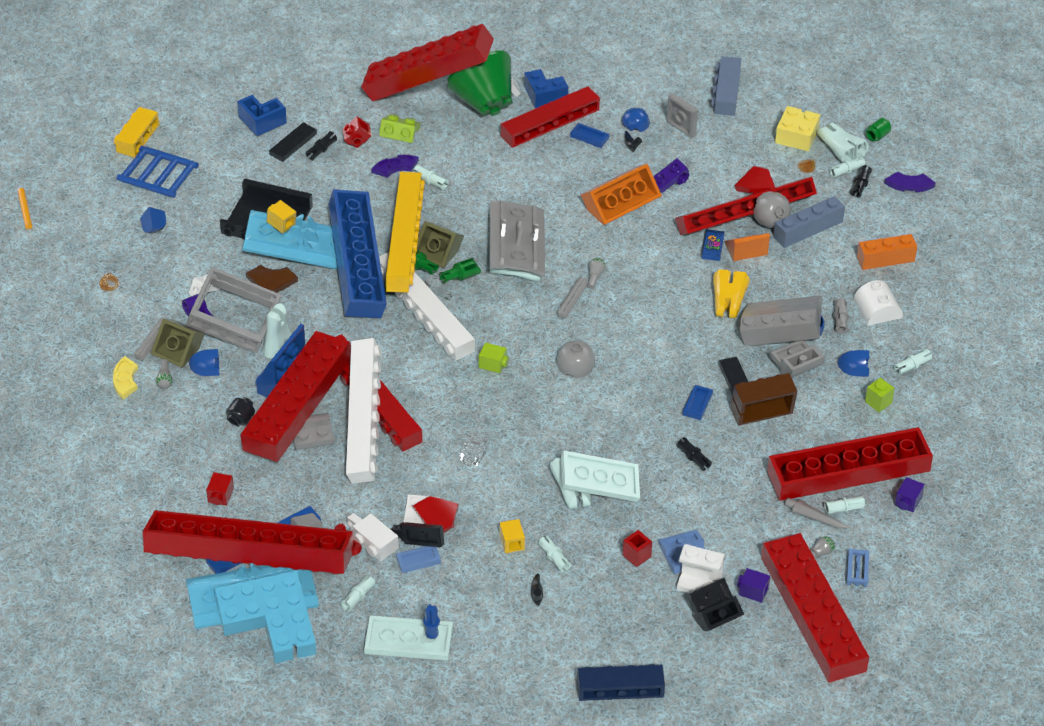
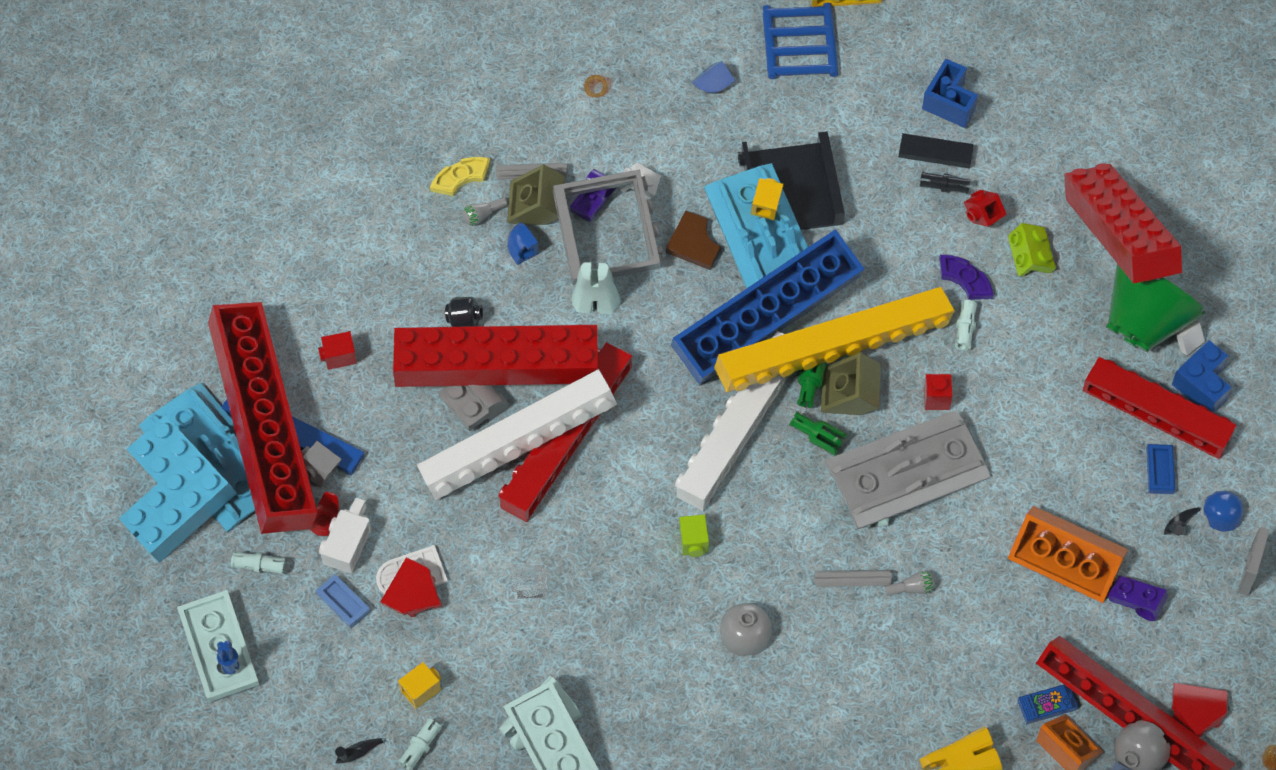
camera: 65 degrees right, 15 degrees up
(281, 362) = (544, 313): blue slope -> none
(420, 534) = (369, 583): black hinge -> none
(471, 205) = (937, 392): none -> red brick

